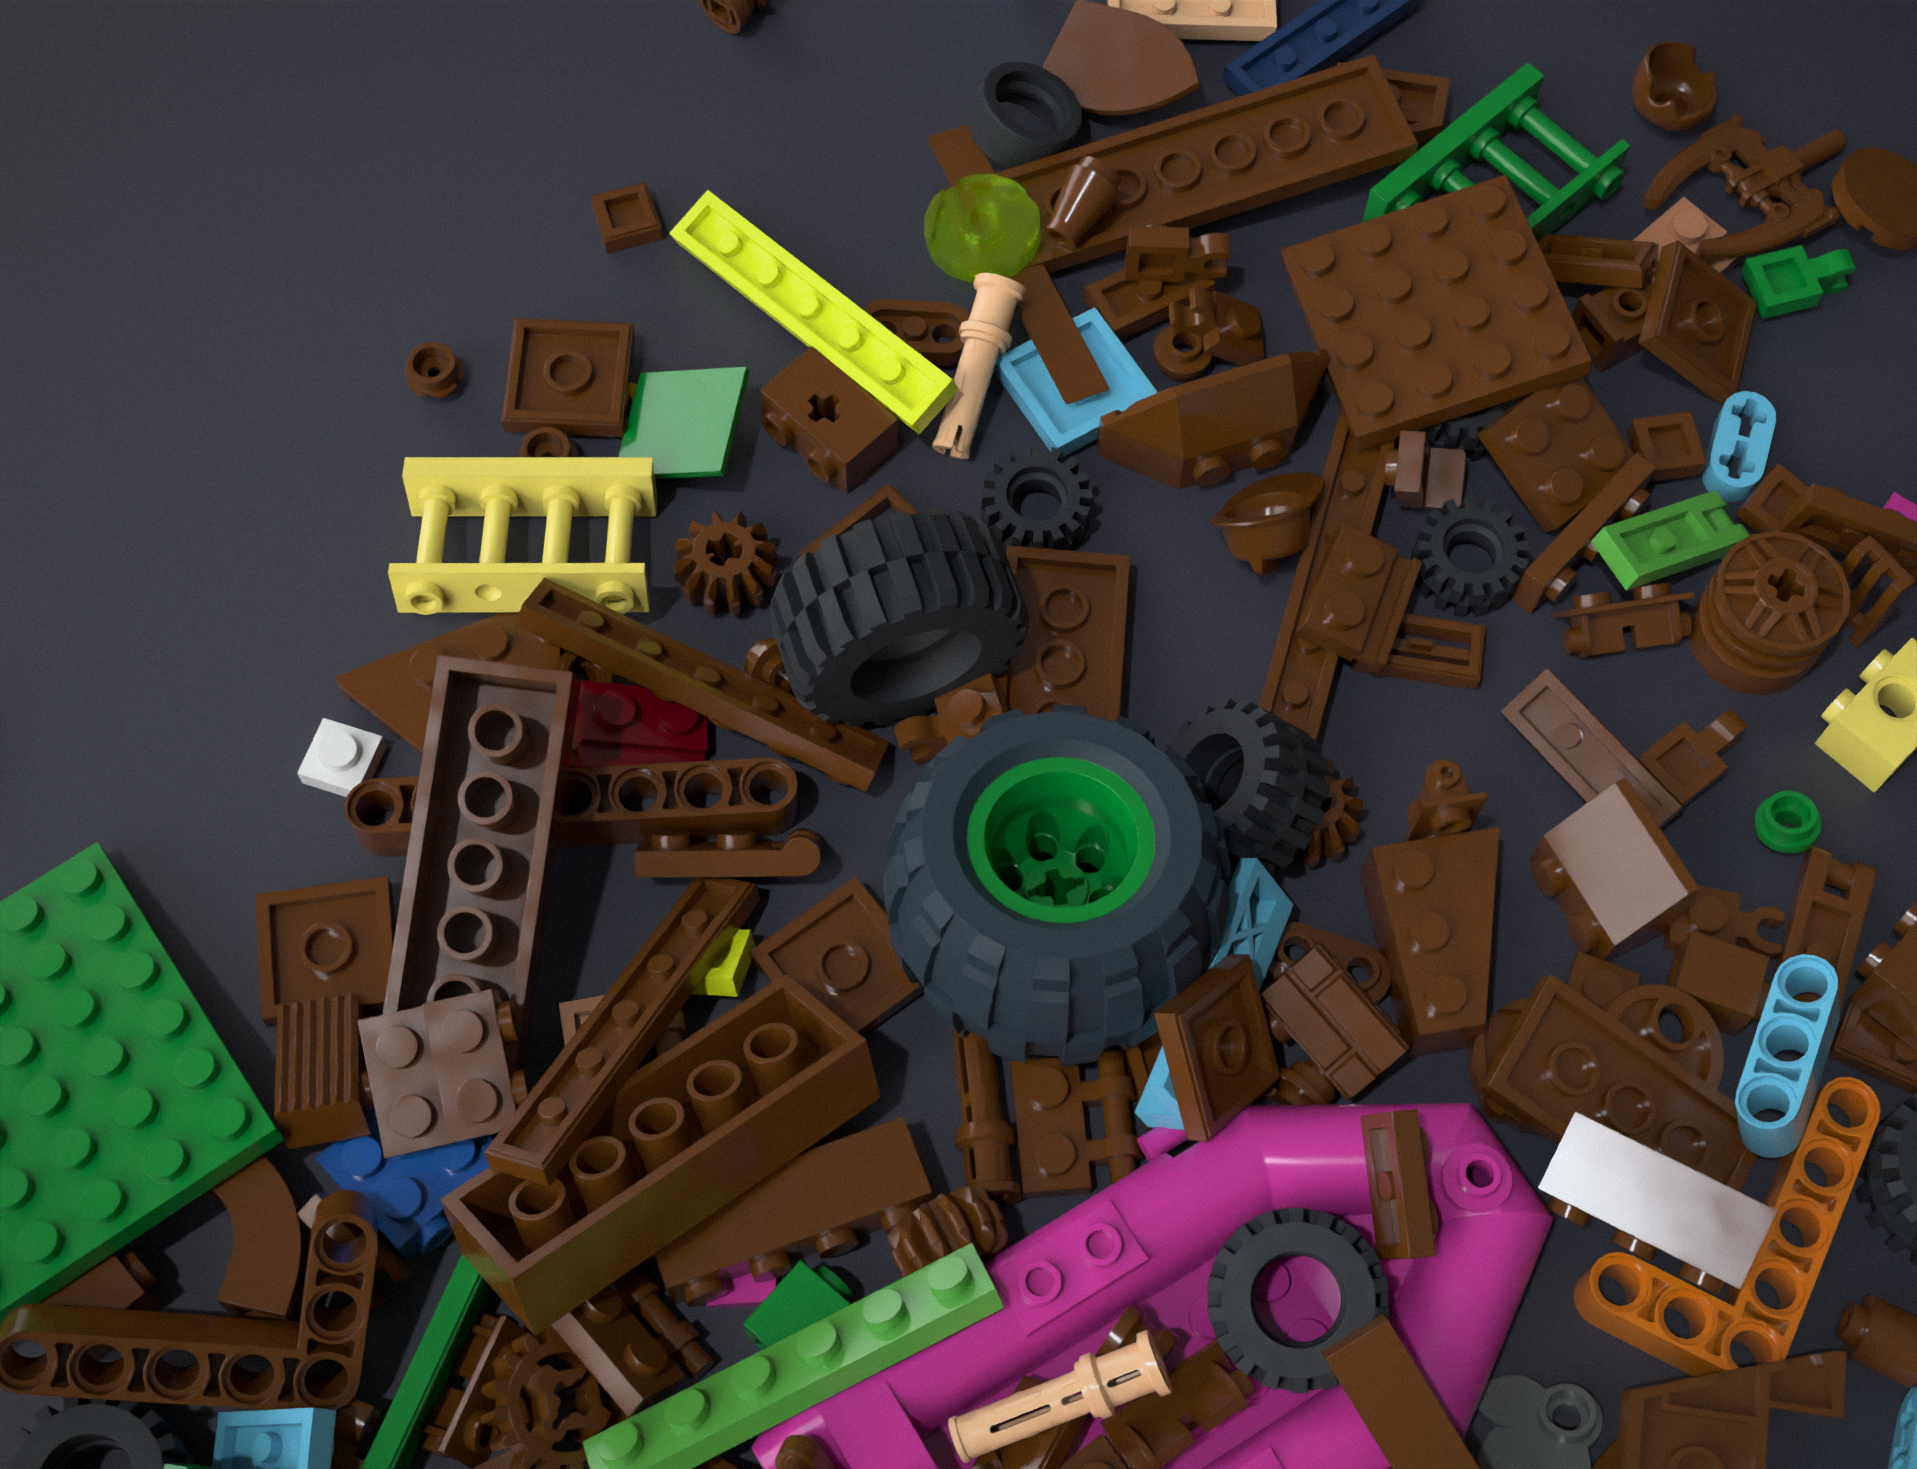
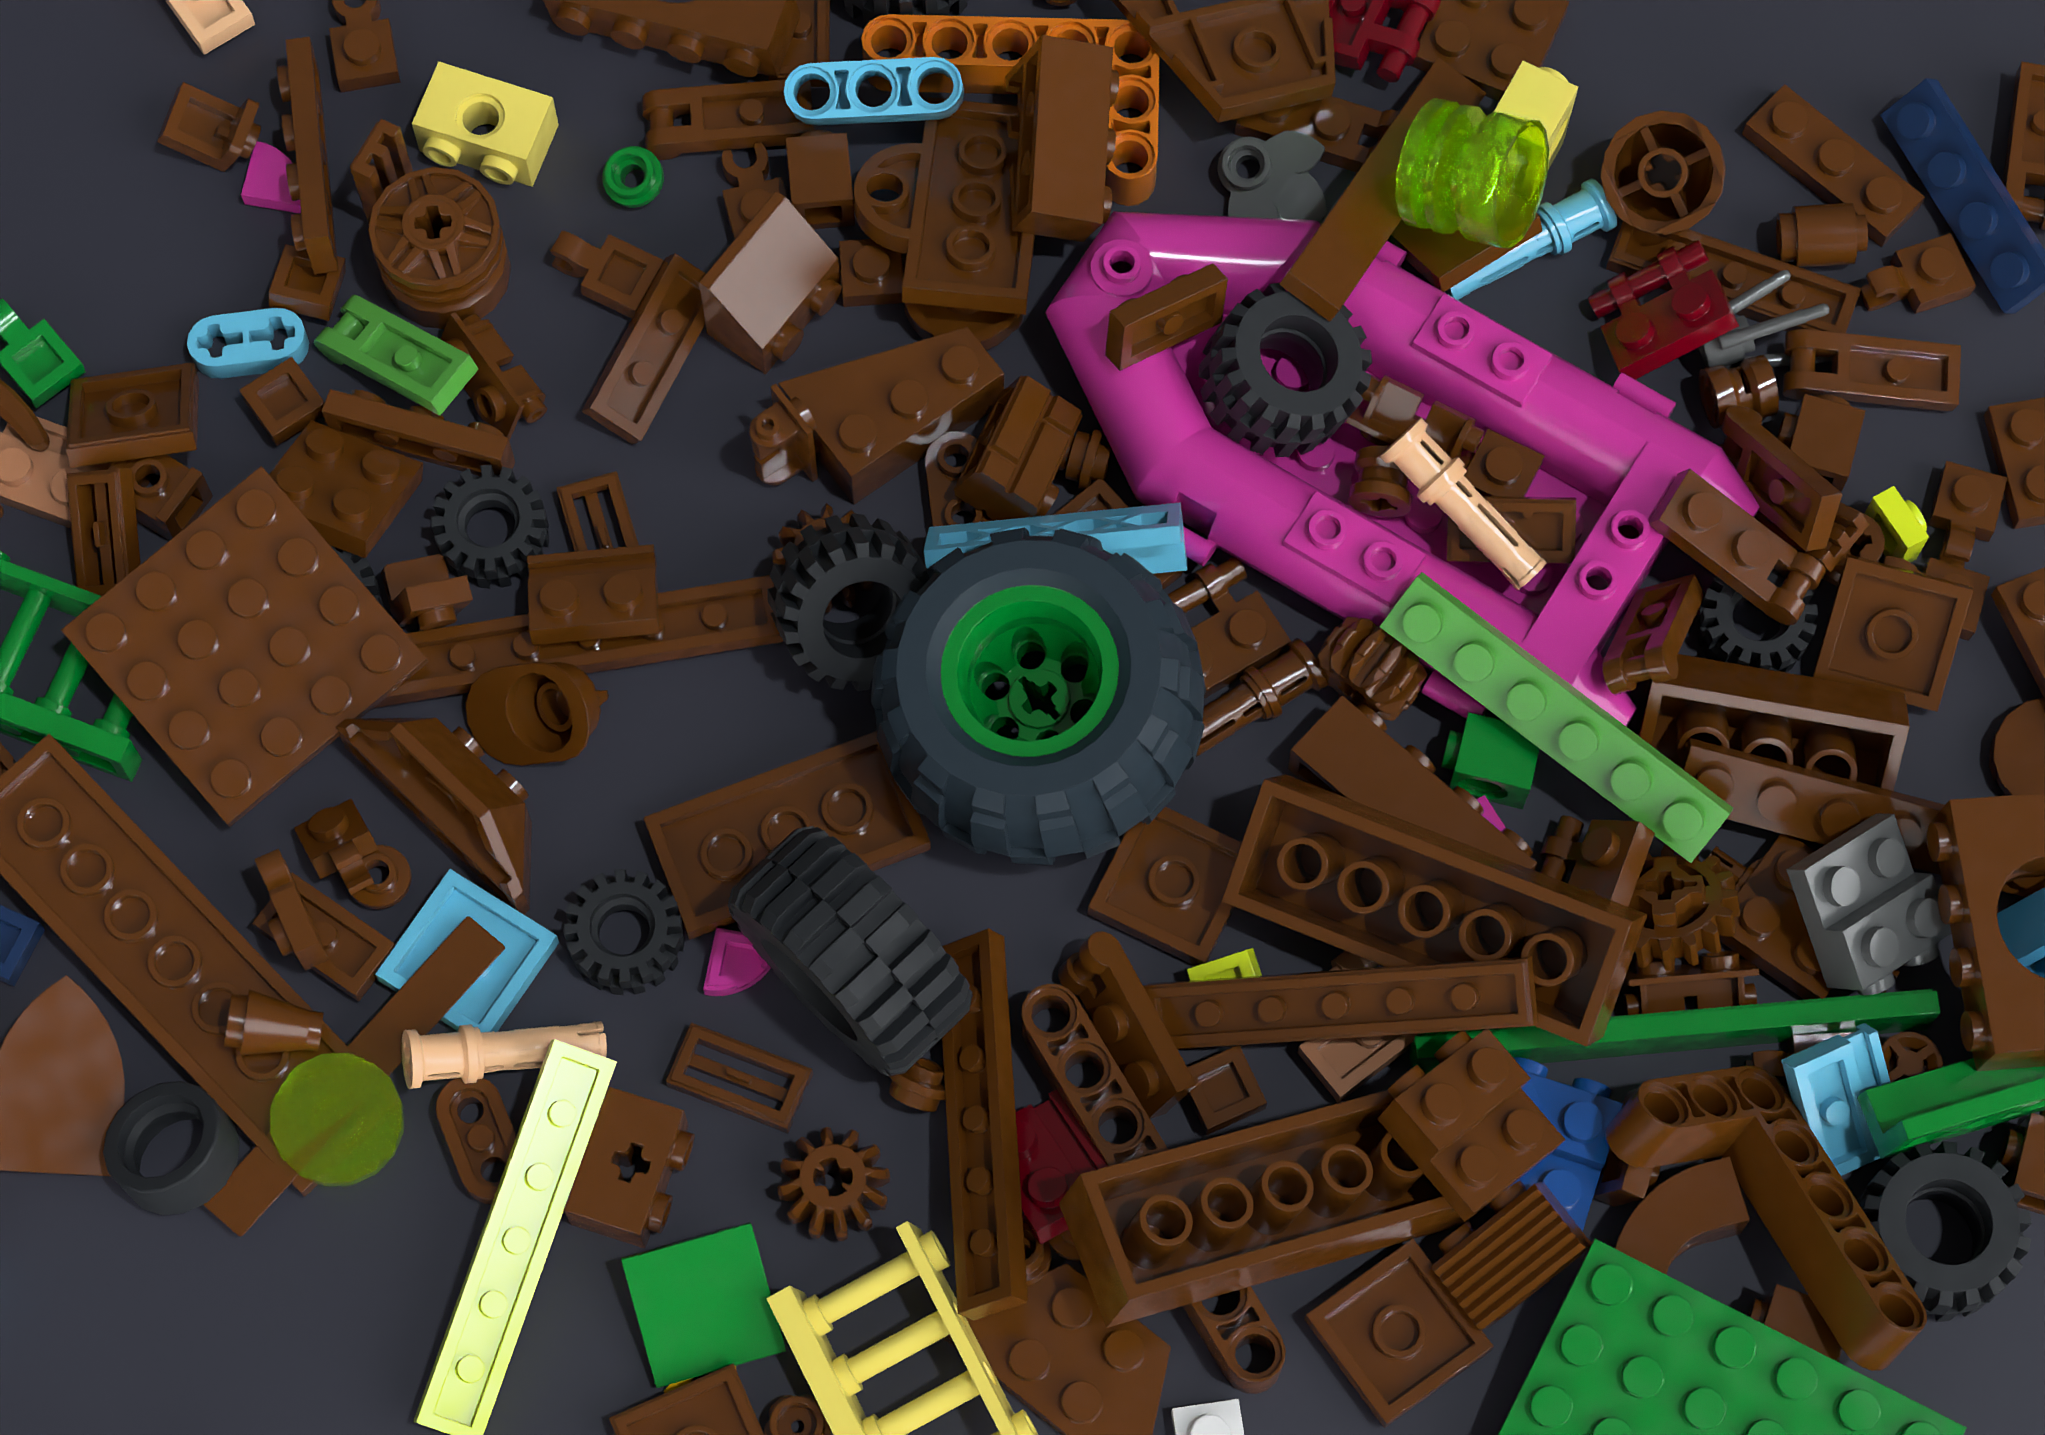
camera: 115 degrees left, 5 degrees up
(625, 911) = (1225, 1090): none -> reddish brown plate
(959, 713) = (902, 873): reddish brown plate -> none
(1217, 1046) = (1113, 508): reddish brown tile -> none

